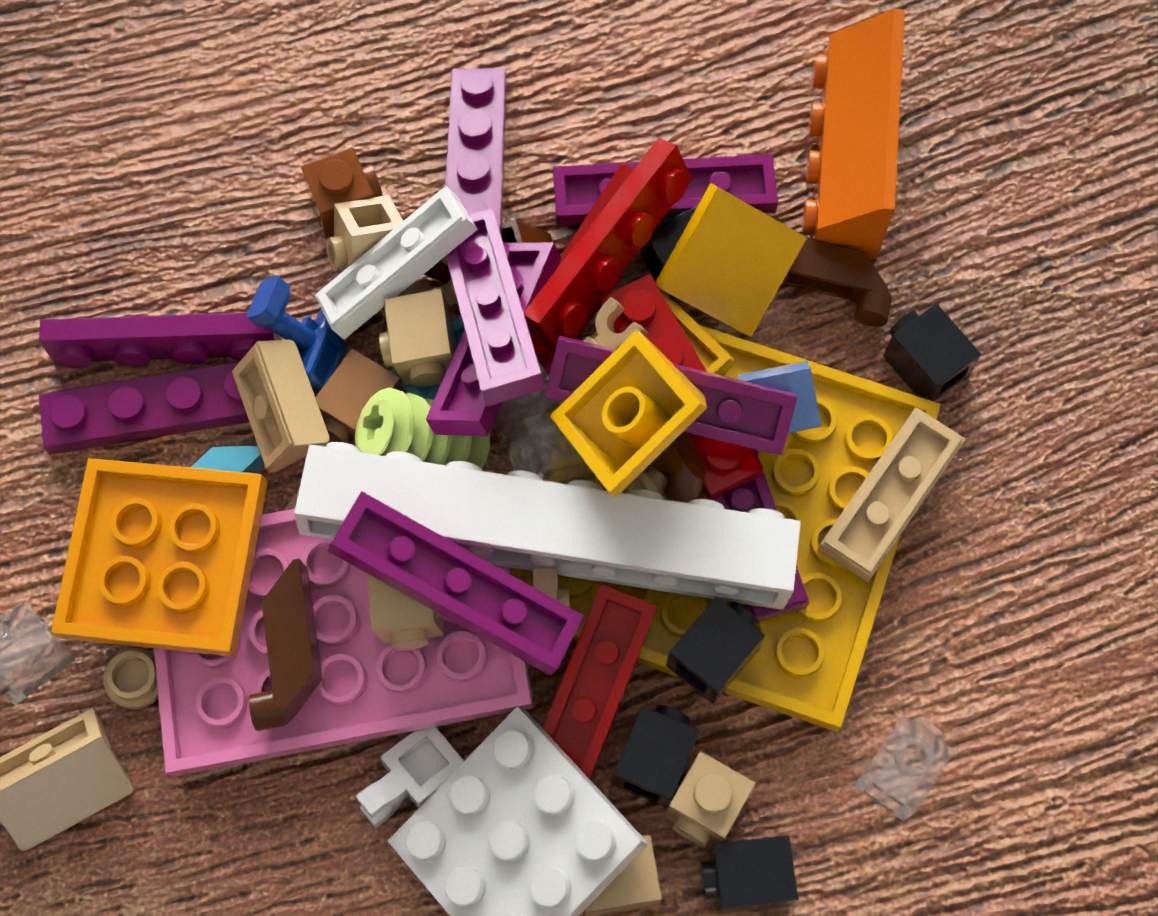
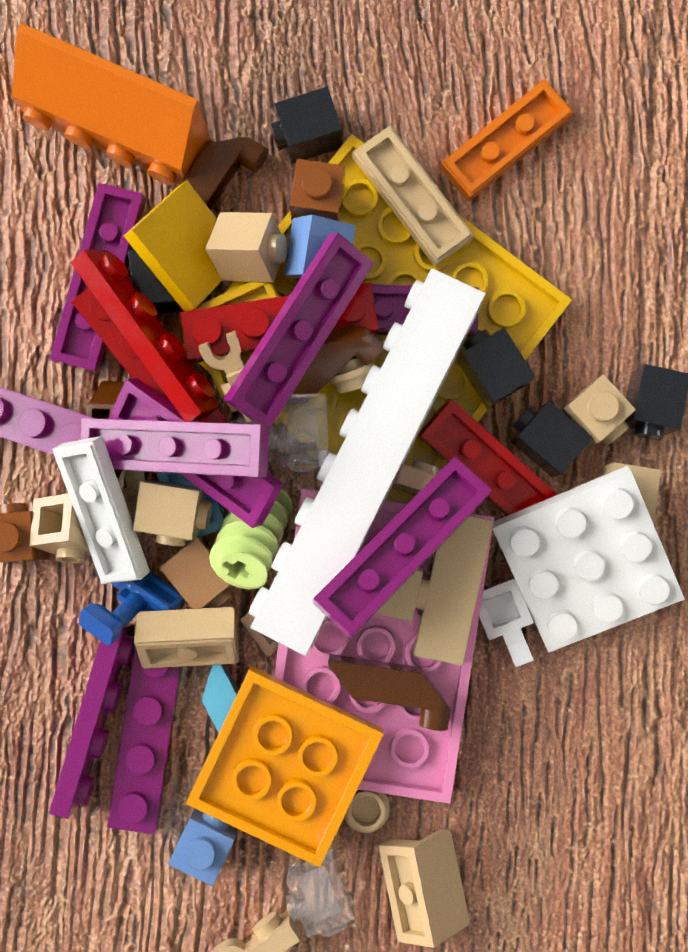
camera: 70 degrees left, 15 degrees up
(42, 500) = (203, 847): none -> medium blue brick
(426, 680) = (453, 593): none -> tan tile
(628, 412) = (314, 364): yellow slope -> none
(753, 322) = (247, 247): none -> tan brick
(847, 379) = (317, 189): none -> dark orange brick
(905, 766) = (612, 264): clear brick -> none
(1015, 593) = (506, 140): none -> orange tile

